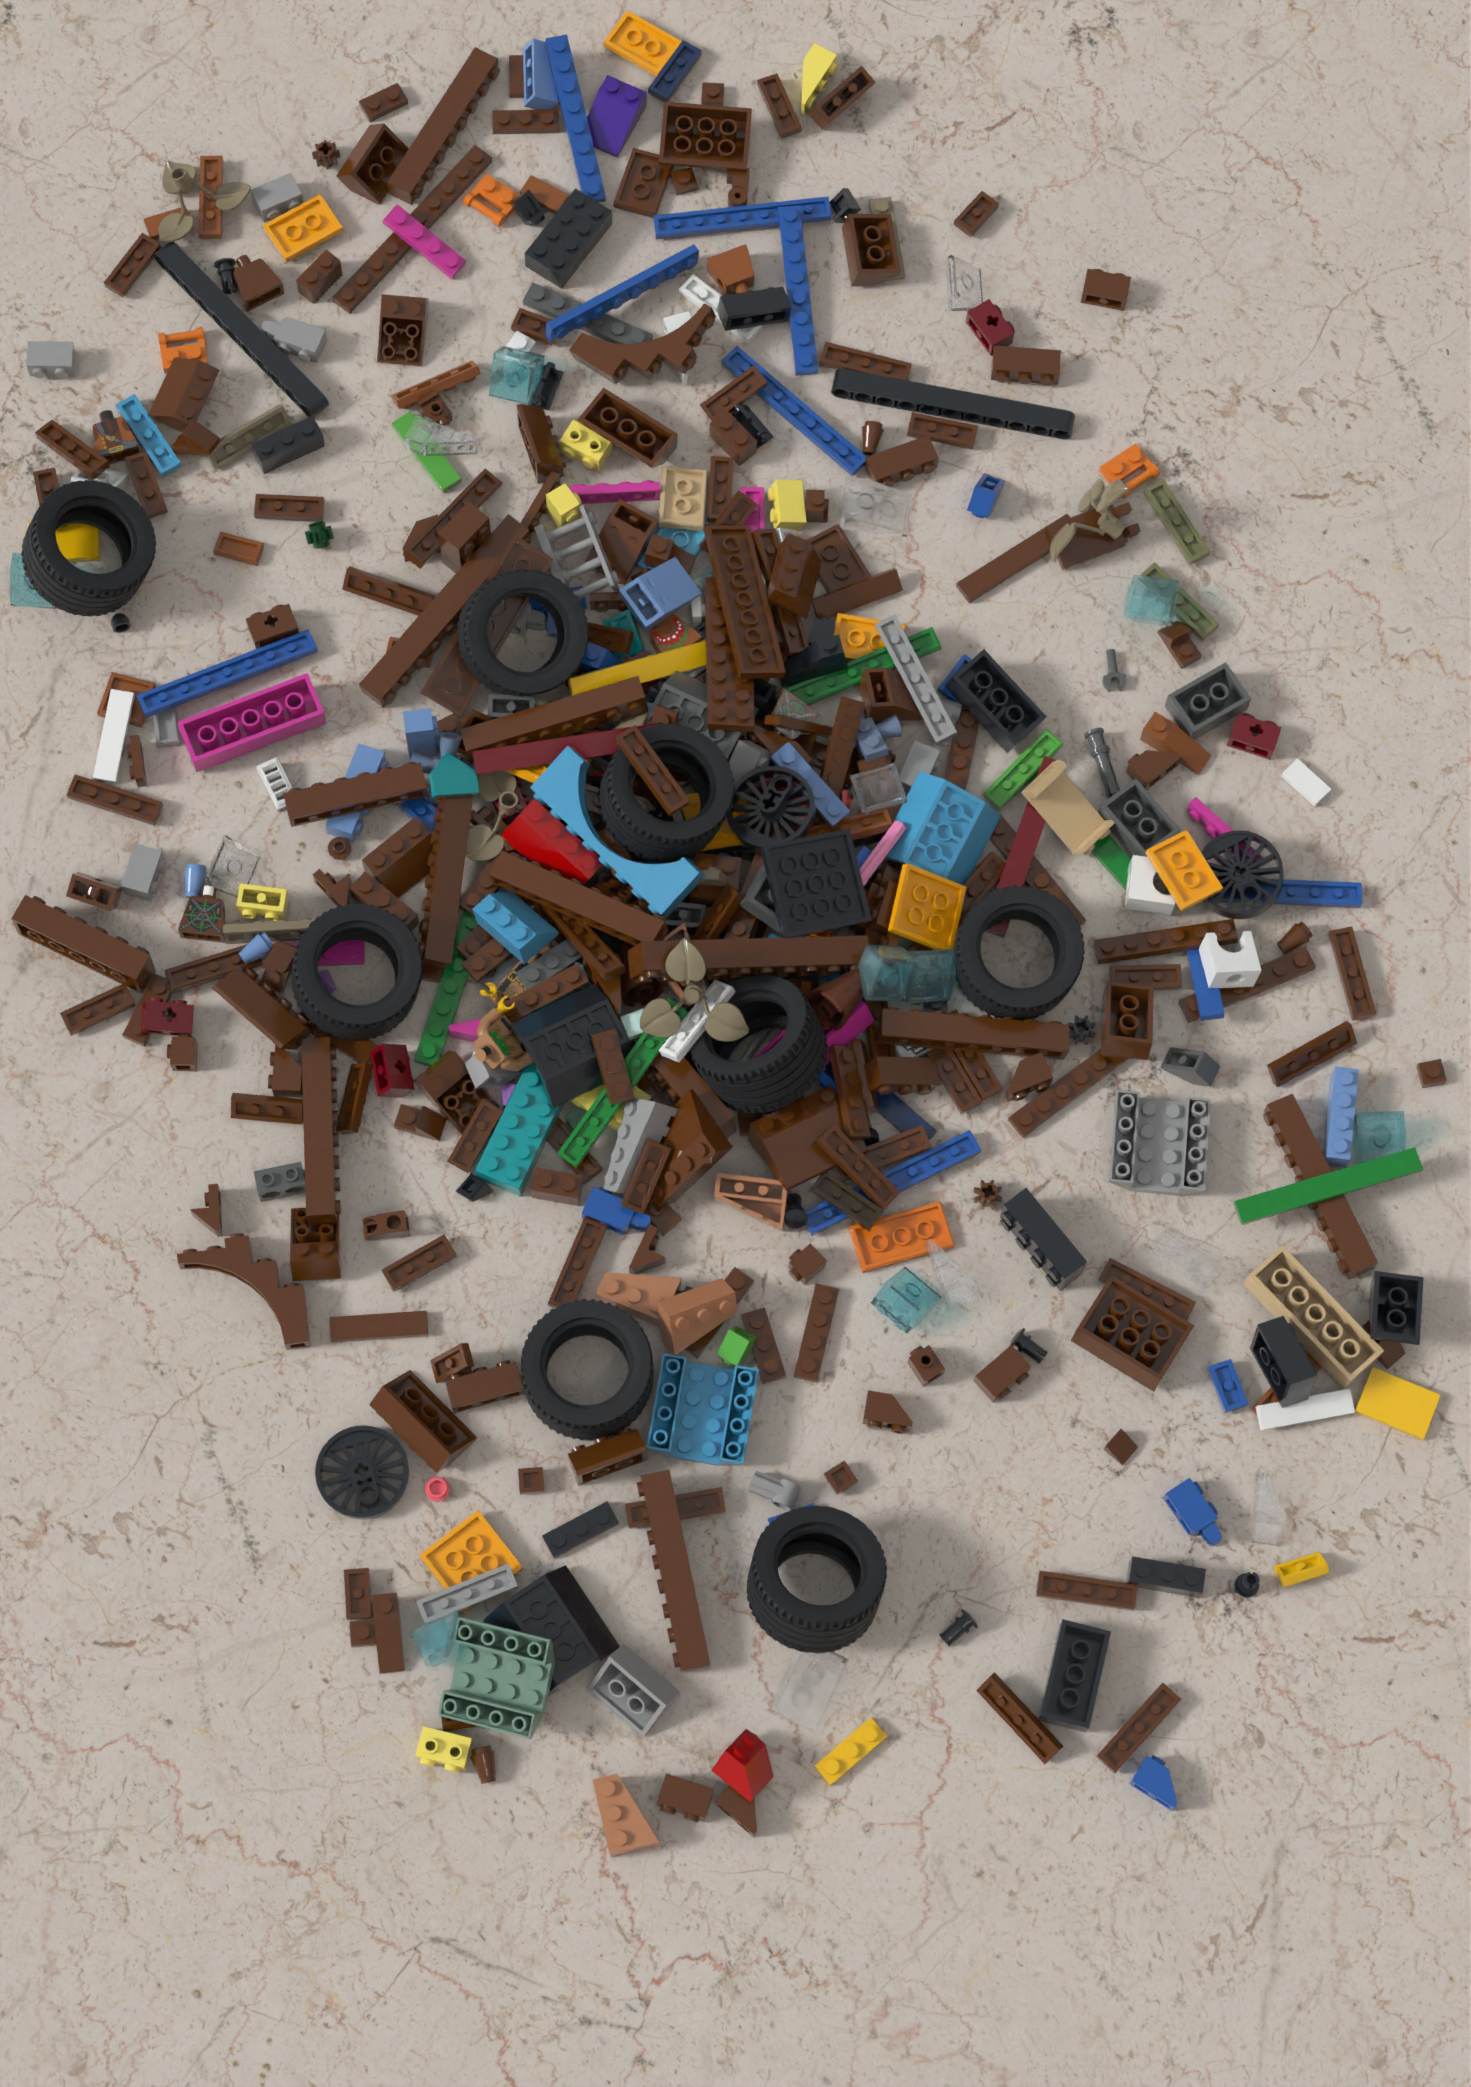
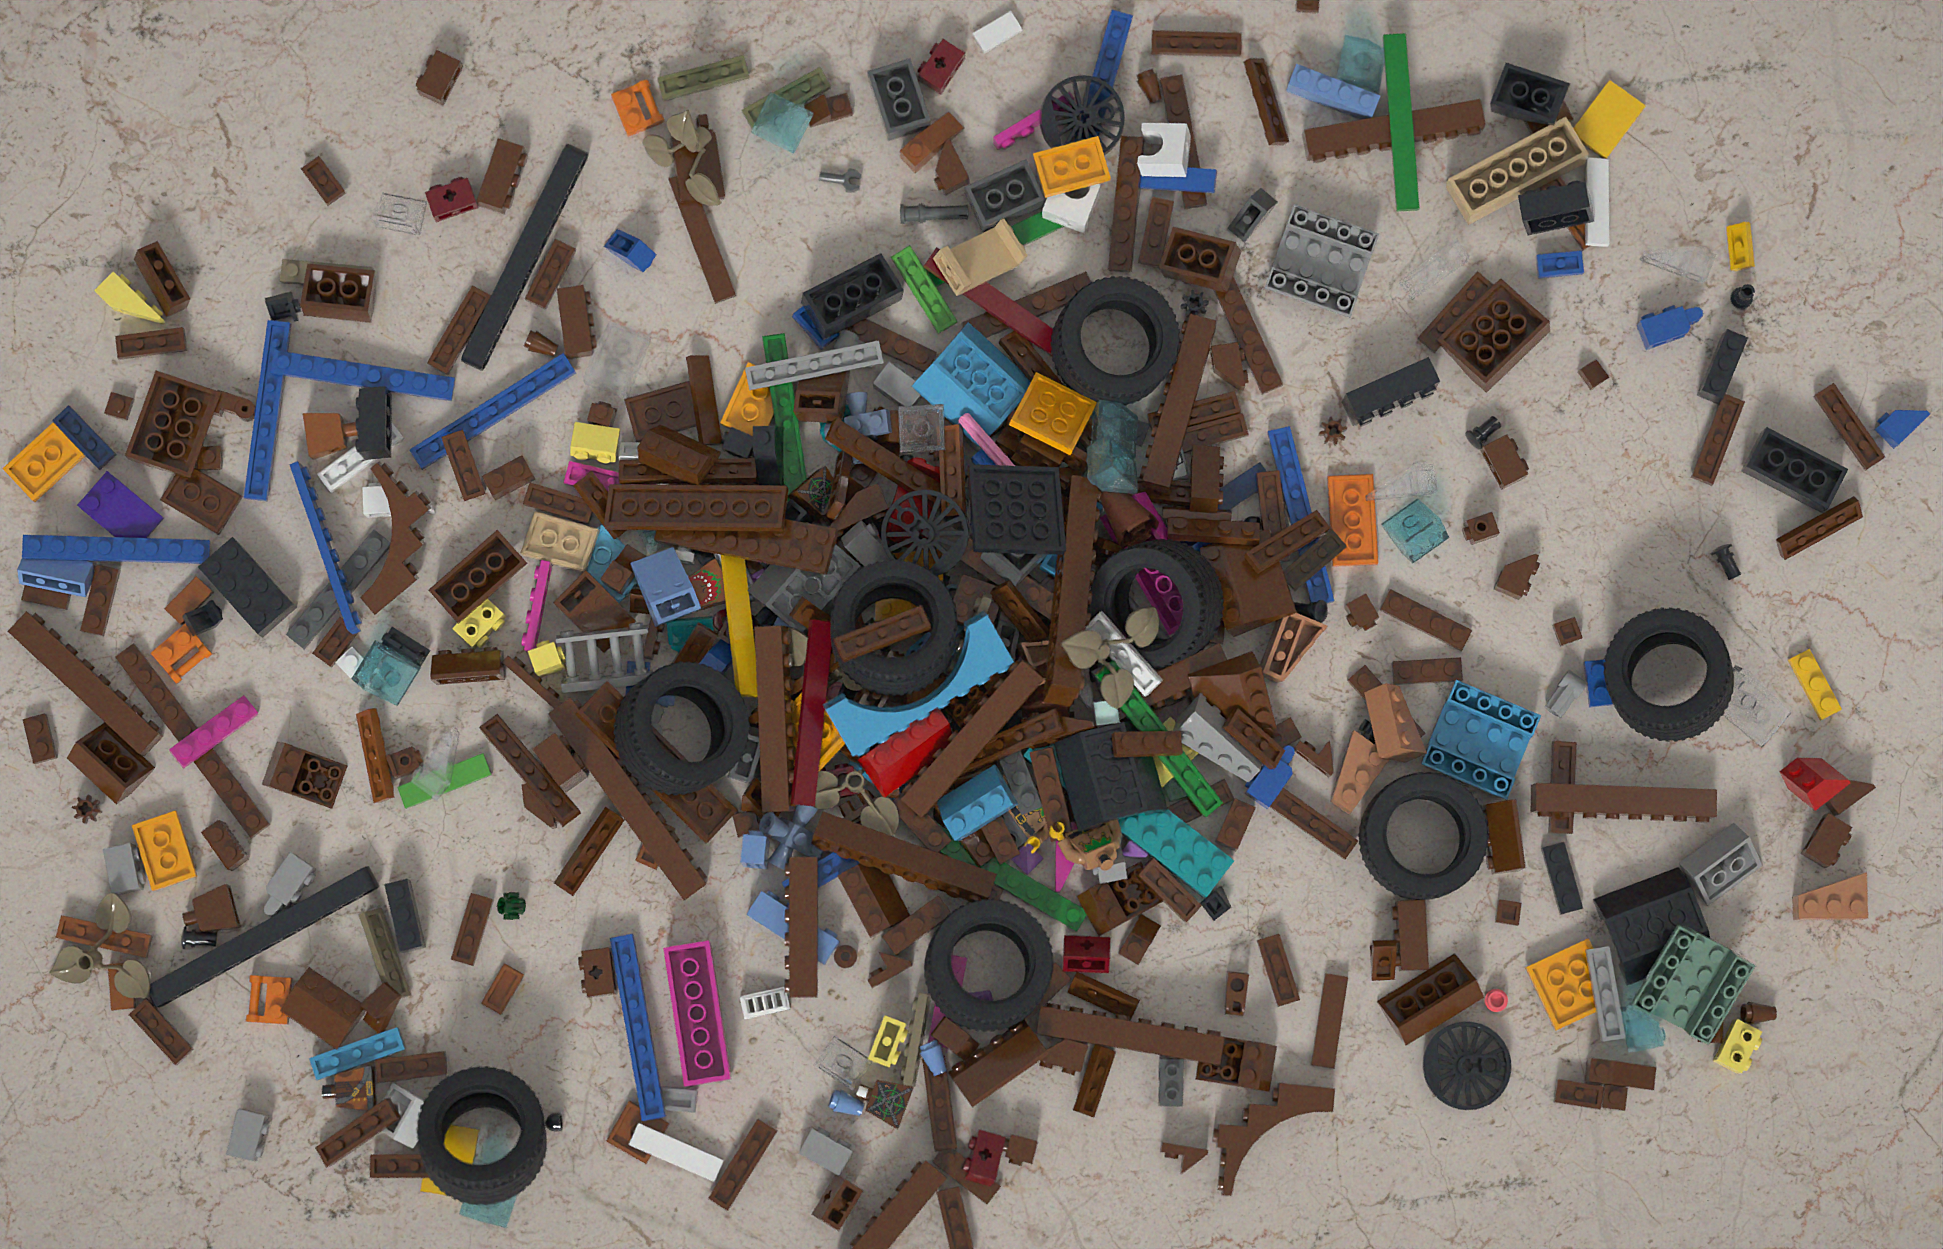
camera: 75 degrees left, 10 degrees up
(135, 752) = (698, 1134): reddish brown plate -> none
(453, 778) = (813, 830): teal slope -> none
(474, 999) = (1026, 860): none -> medium lavender slope
(736, 1346) = (1427, 695): bright green brick -> none
(752, 424) = (497, 456): black hinge -> none
(826, 801) = (924, 479): medium blue plate -> none

